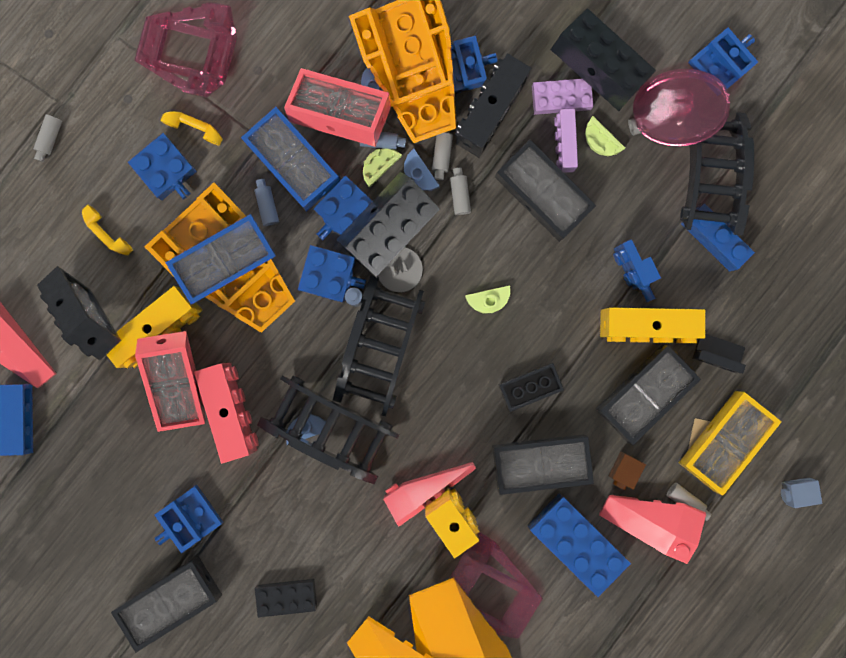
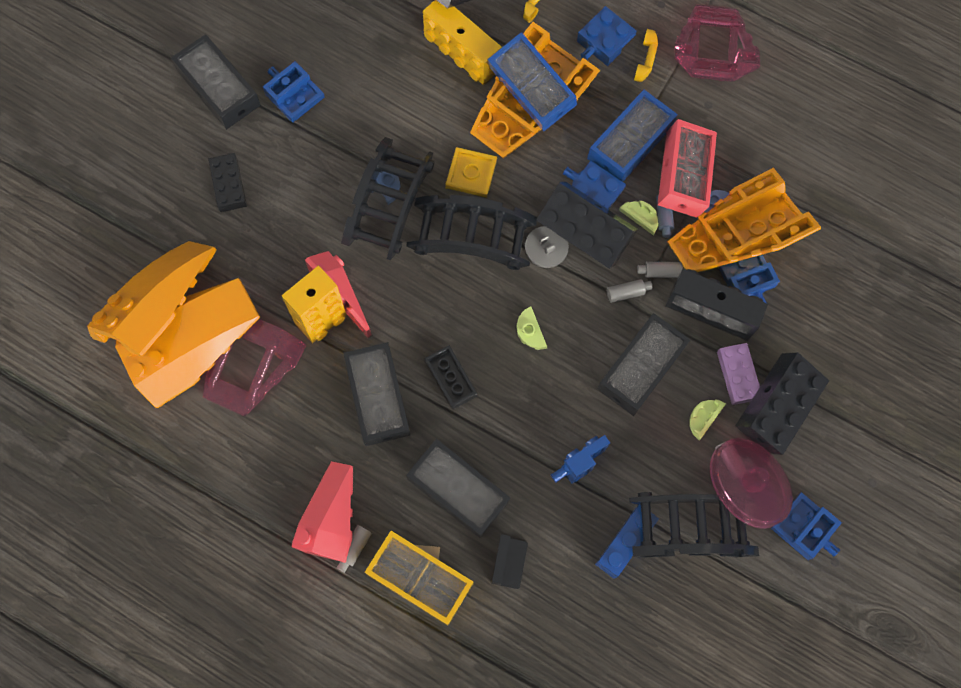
camera: 80 degrees right, 15 degrees down
(170, 381) = (416, 56): brick -> none
(226, 411) = (394, 108): coral brick -> none
(266, 203) = (588, 123): sand blue cylinder -> none
(305, 337) = (471, 172): none -> yellow tile
(328, 274) = (531, 182): blue plate -> none
(354, 297) = (514, 199): sand blue cylinder -> none
(417, 170) = (639, 251): medium blue plate -> none
(566, 140) = (696, 380): lavender piece -> none
(578, 545) = (300, 440): blue brick -> none
(626, 471) = (378, 479): reddish brown brick -> none
(648, 323) = (531, 497): yellow brick -> none
(801, 492) = (375, 664): sand blue brick -> none

